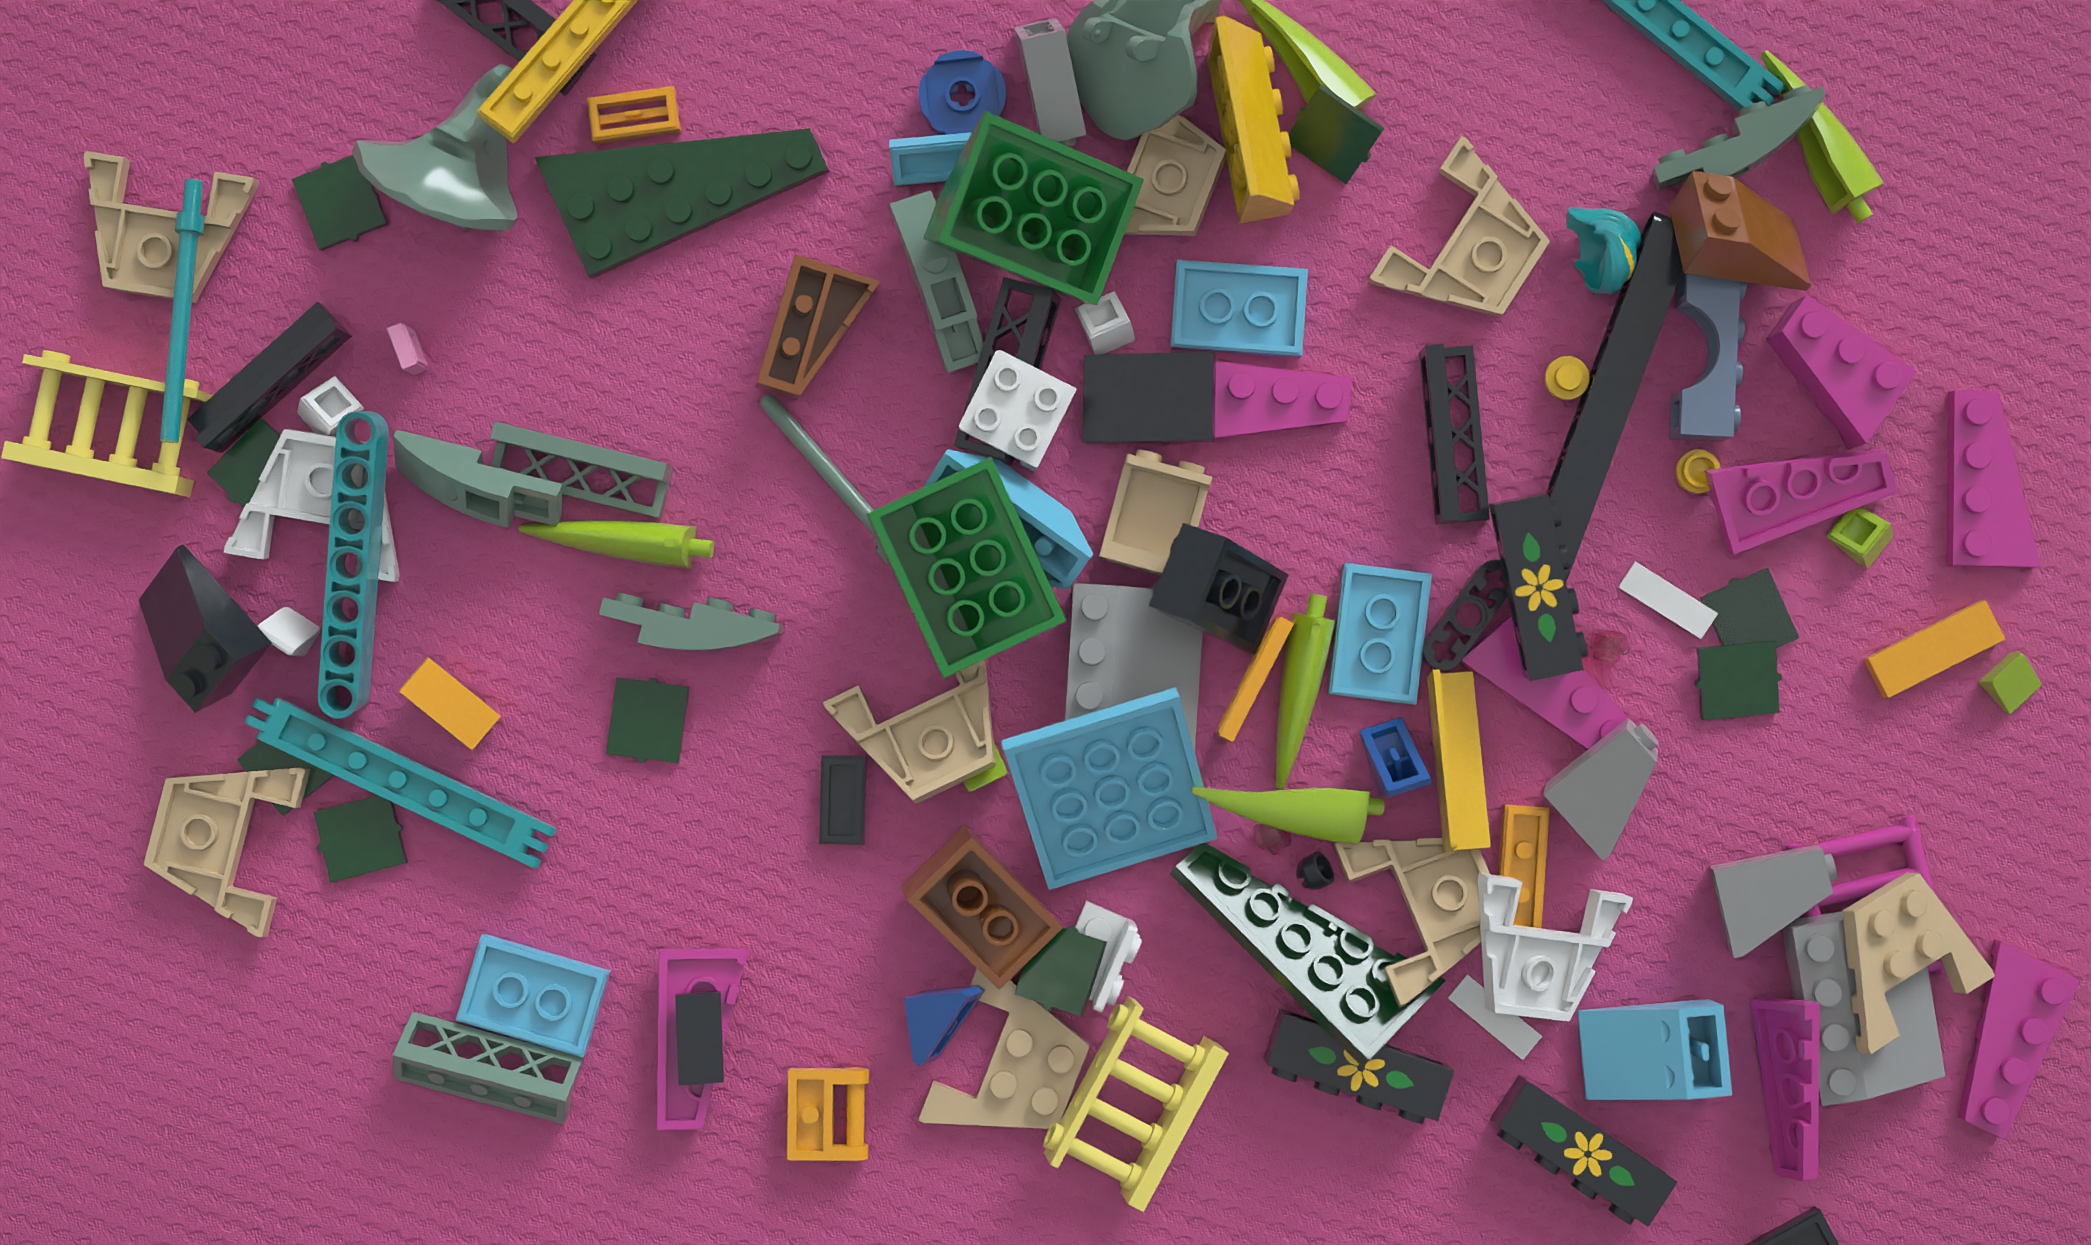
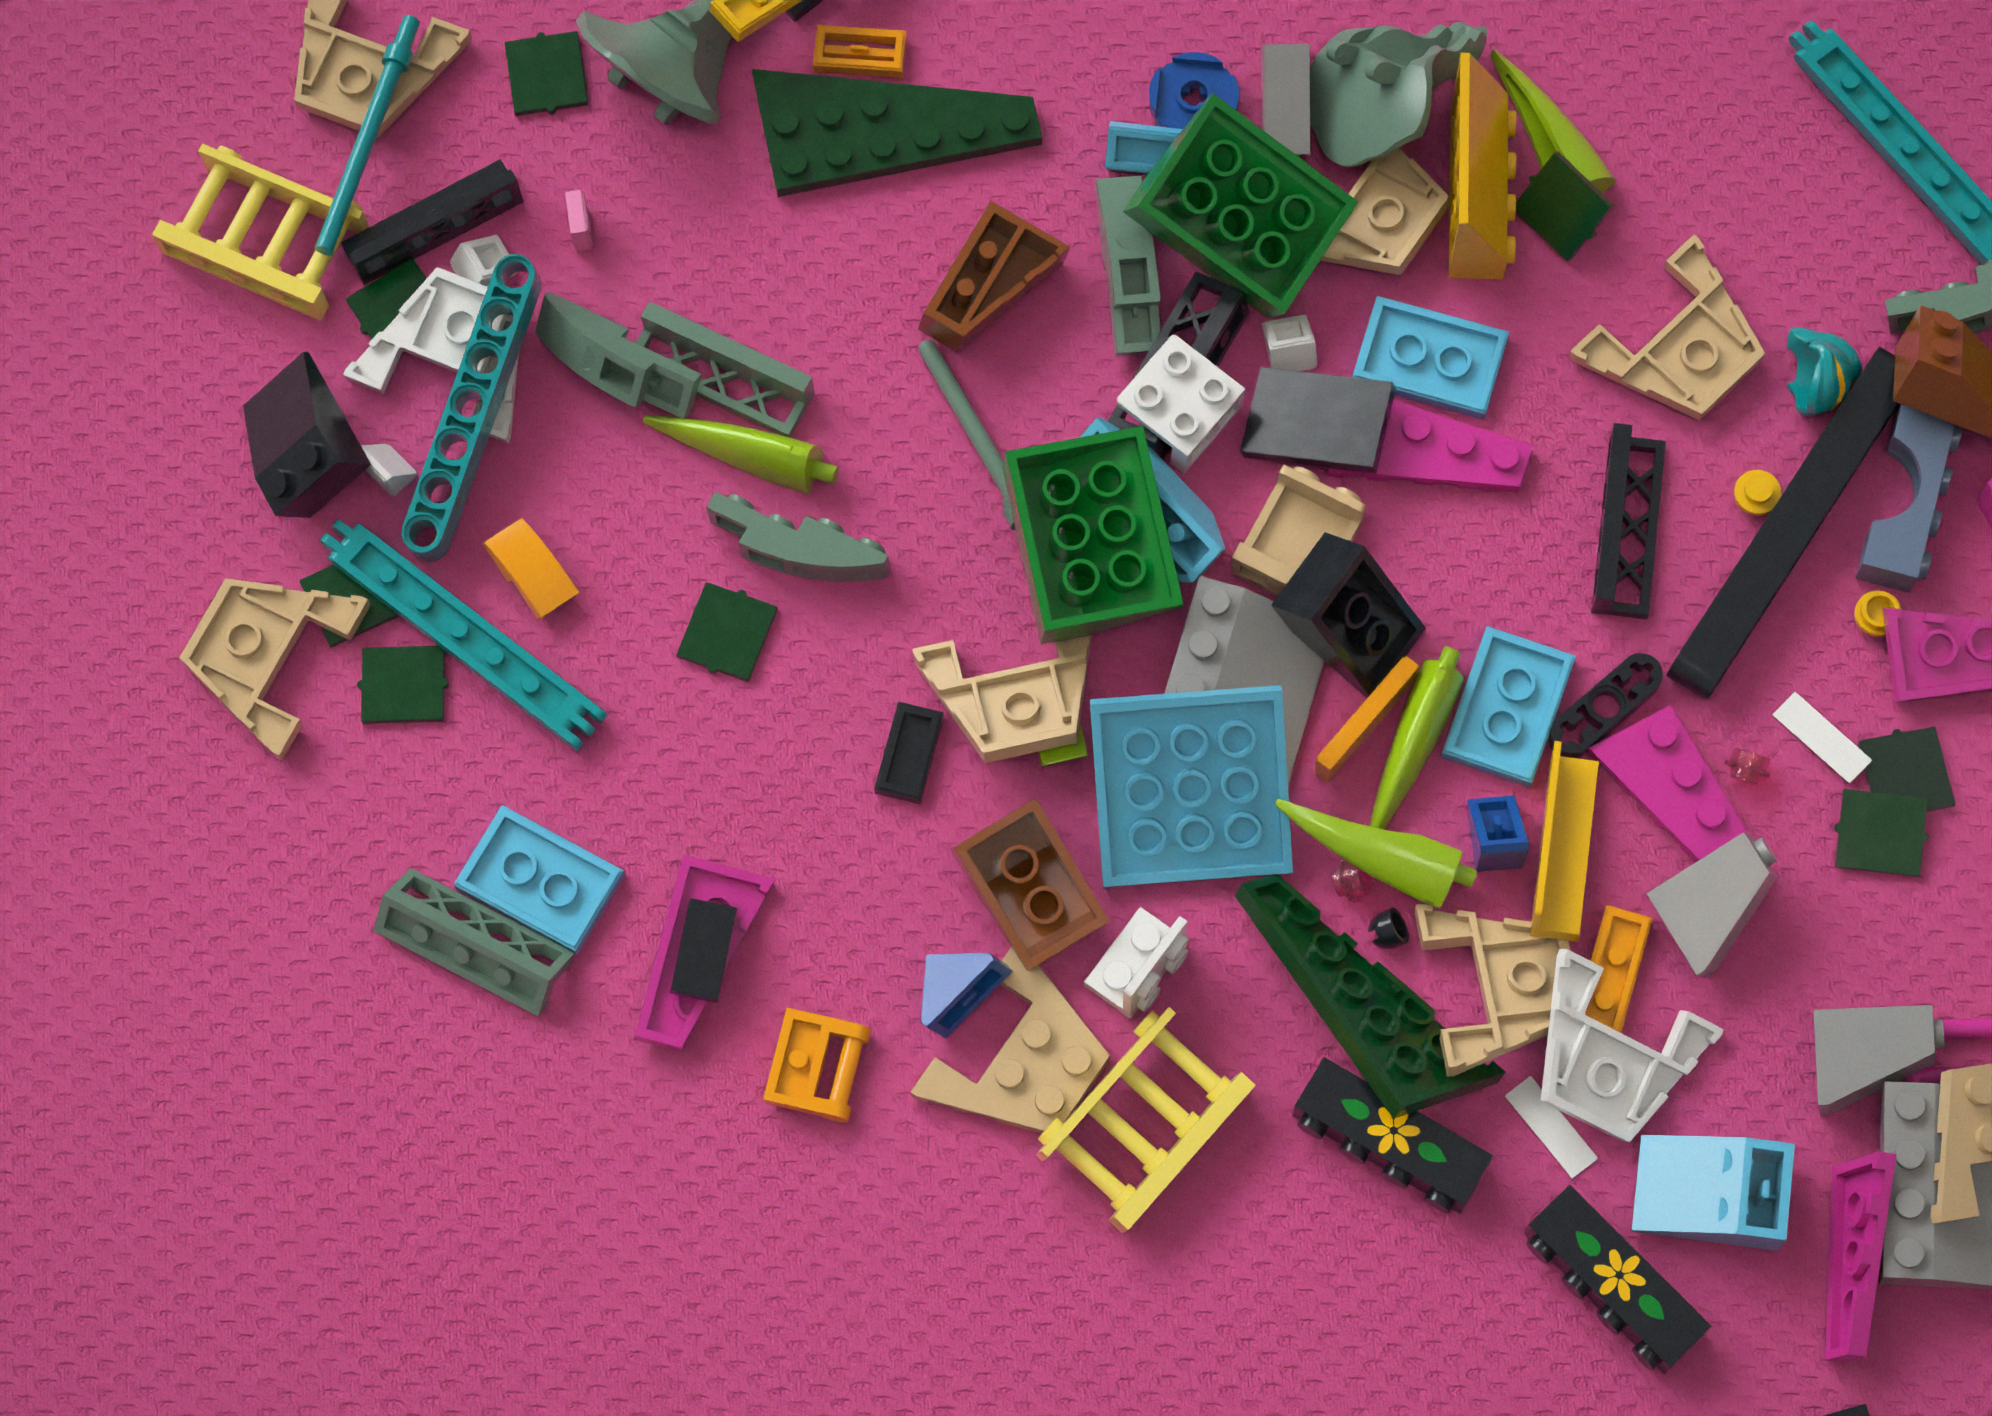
camera: 20 degrees right, 15 degrees down
(1063, 972) = (1098, 966): dark green piece -> none
(1537, 586) = (1680, 677): black brick -> none

